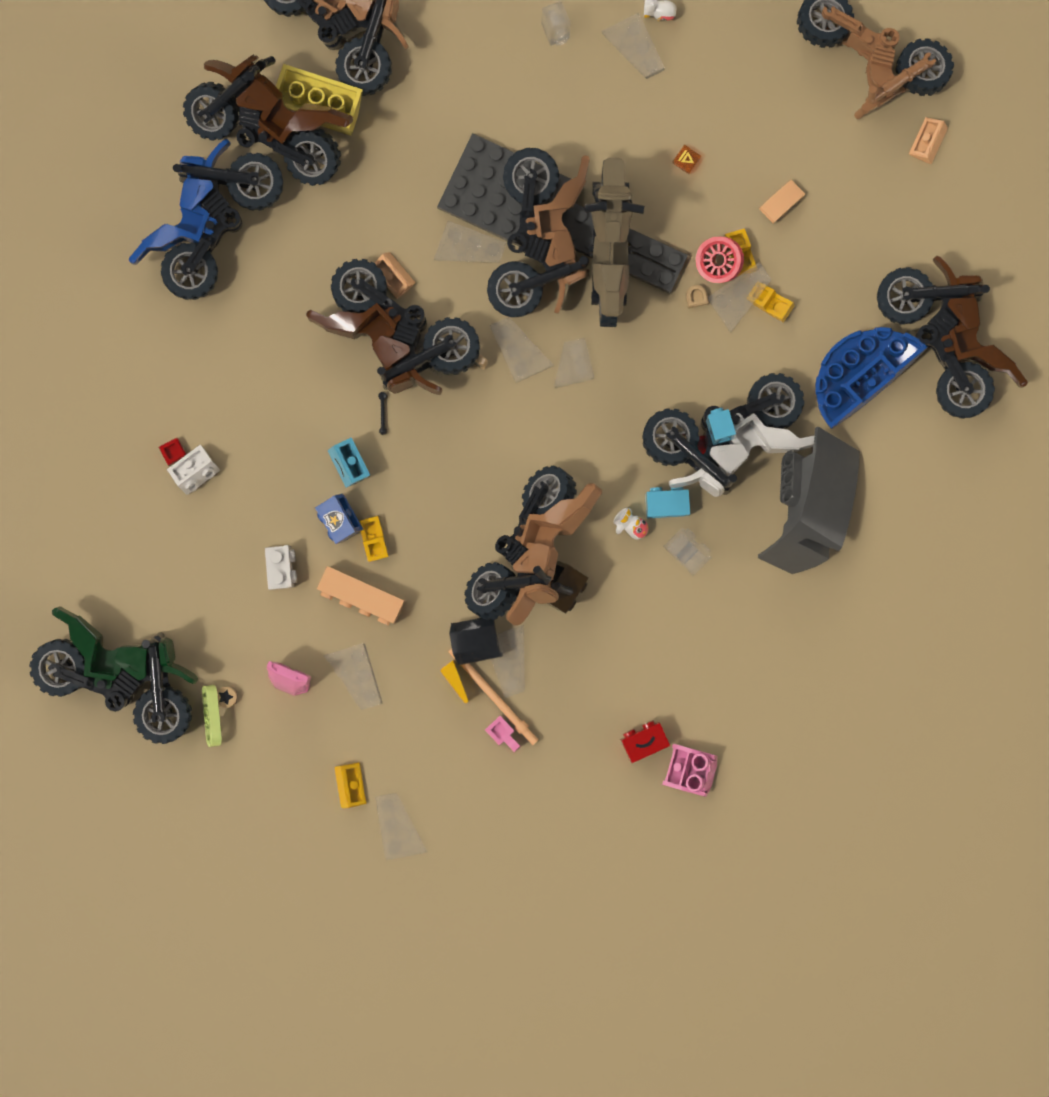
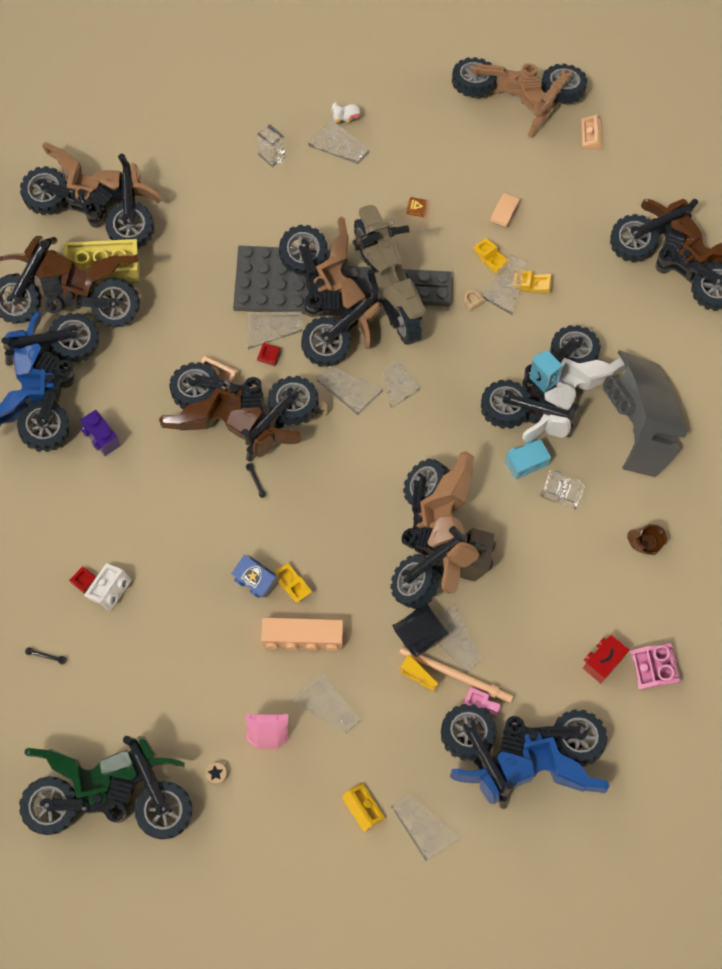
camera: 25 degrees left, 20 degrees down
(123, 525) = (61, 660): none -> black hinge
(211, 715) = (209, 794): yellowish green beam -> none
(244, 300) = (100, 433): none -> dark purple brick
(280, 567) = (219, 639): white bracket -> none
(348, 462) = (244, 526): medium azure brick -> none
(453, 276) = (268, 354): none -> red tile
(533, 804) = (524, 751): none -> piece
(633, 525) = (508, 486): white animal -> none
(735, 268) = (471, 249): coral wheel -> none
(749, 638) = (647, 539): none -> reddish brown hair
(861, 369) = (629, 301): blue brick -> none

